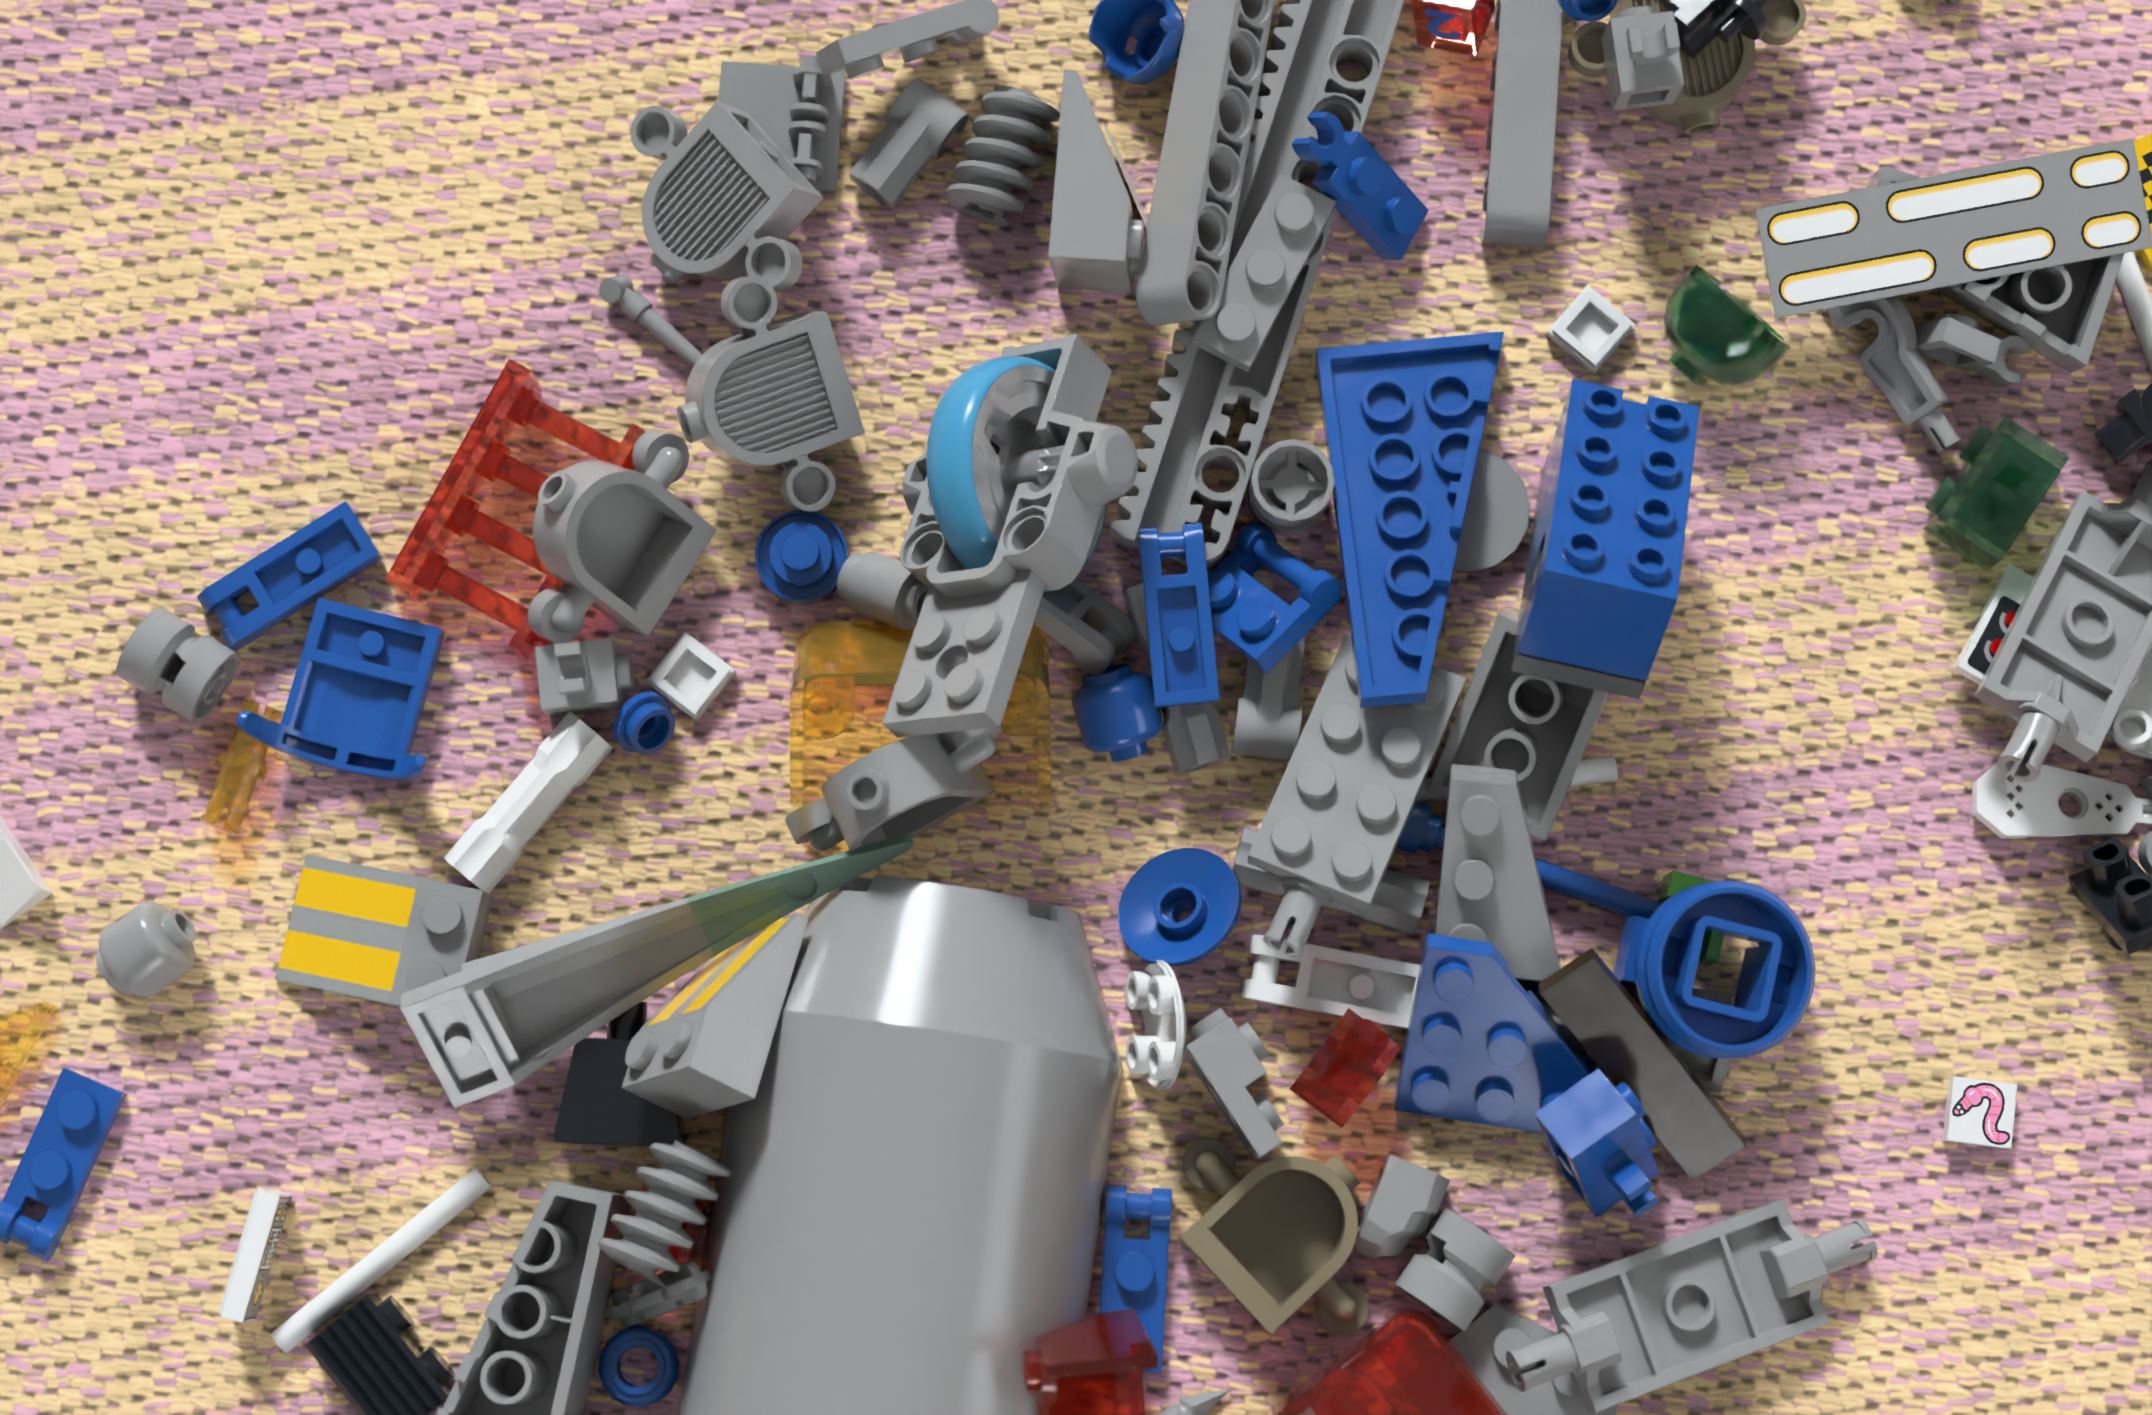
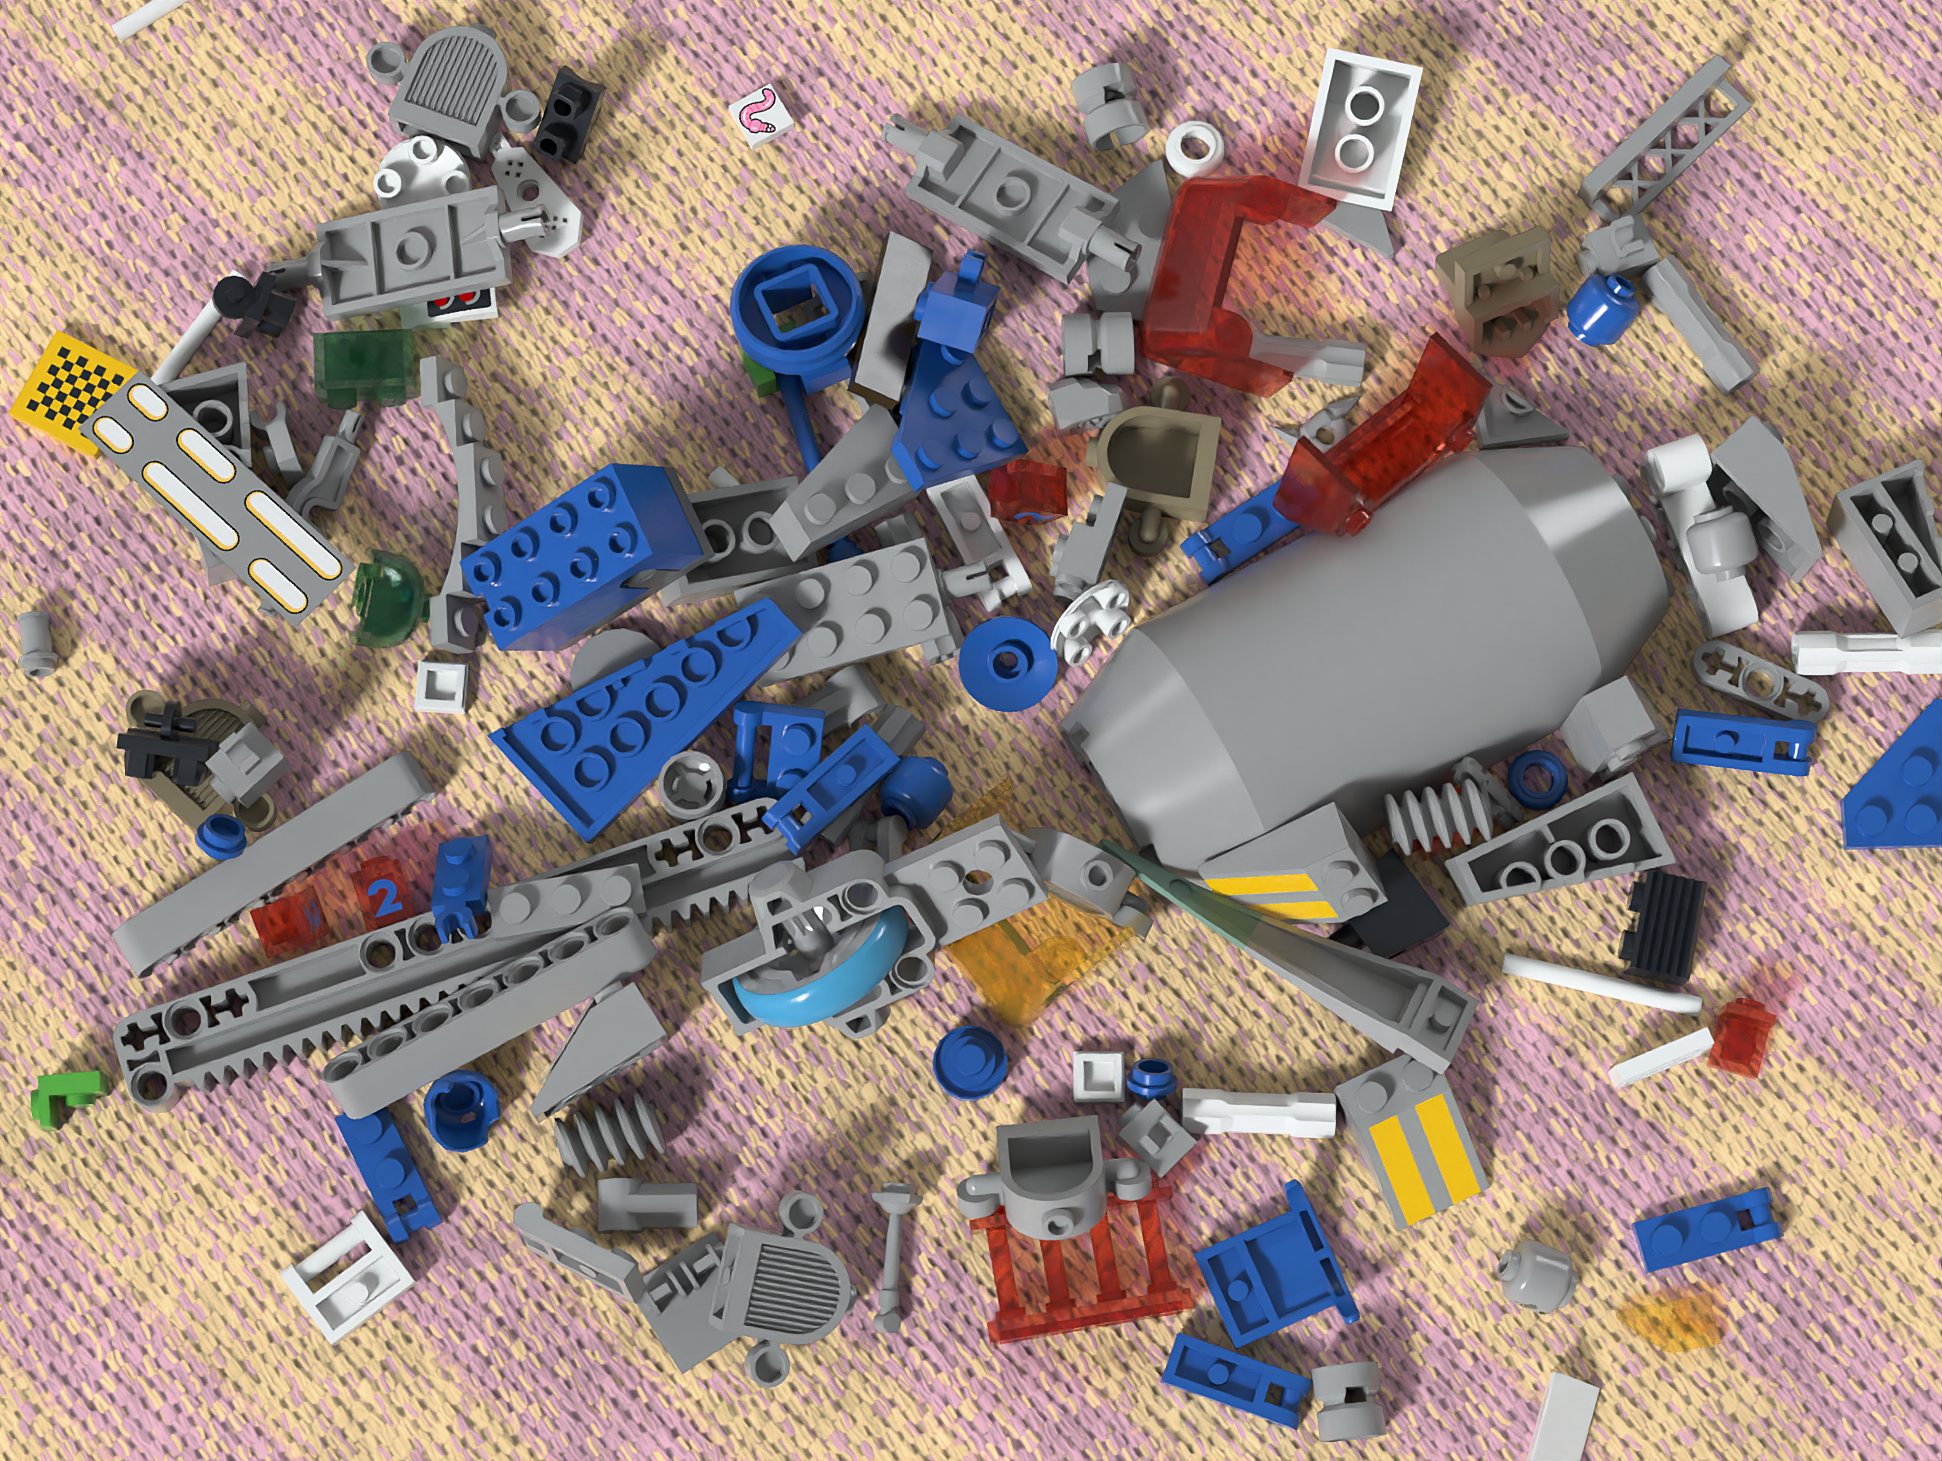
camera: 130 degrees left, 5 degrees down
(212, 1357) = (1740, 1037): none -> clear red bracket
(238, 774) = (1381, 1312): clear yellow pin -> none
(772, 393) = (883, 1152): light grey piece -> none
(881, 589) = (952, 993): light grey brick -> none
(1412, 115) = (383, 893): none -> clear red brick
(1775, 508) = (480, 499): none -> light grey piece

